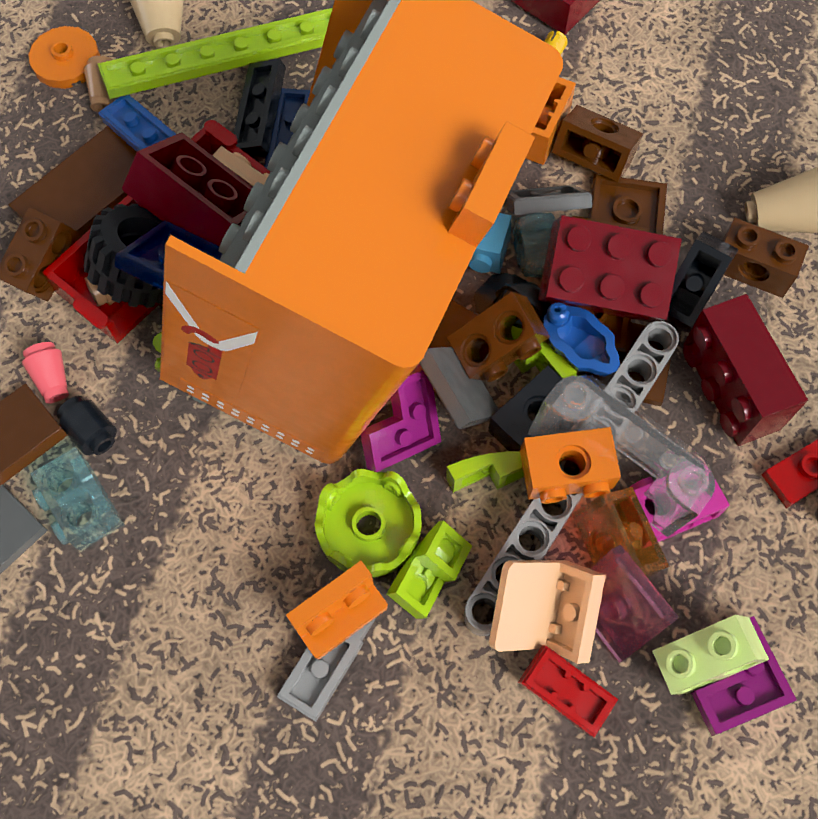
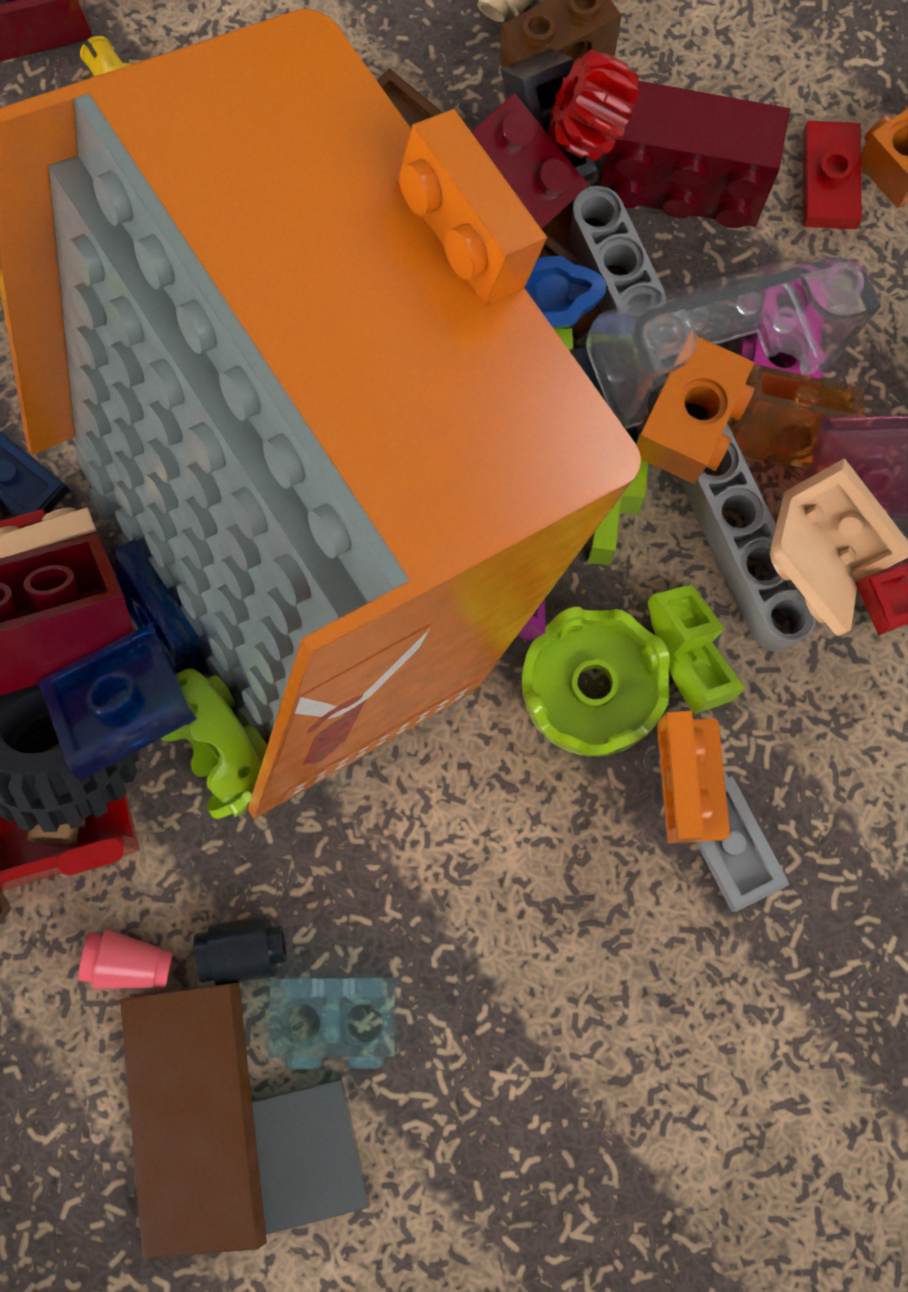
camera: 55 degrees left, 10 degrees up
(710, 285) = (593, 105): none -> red gear

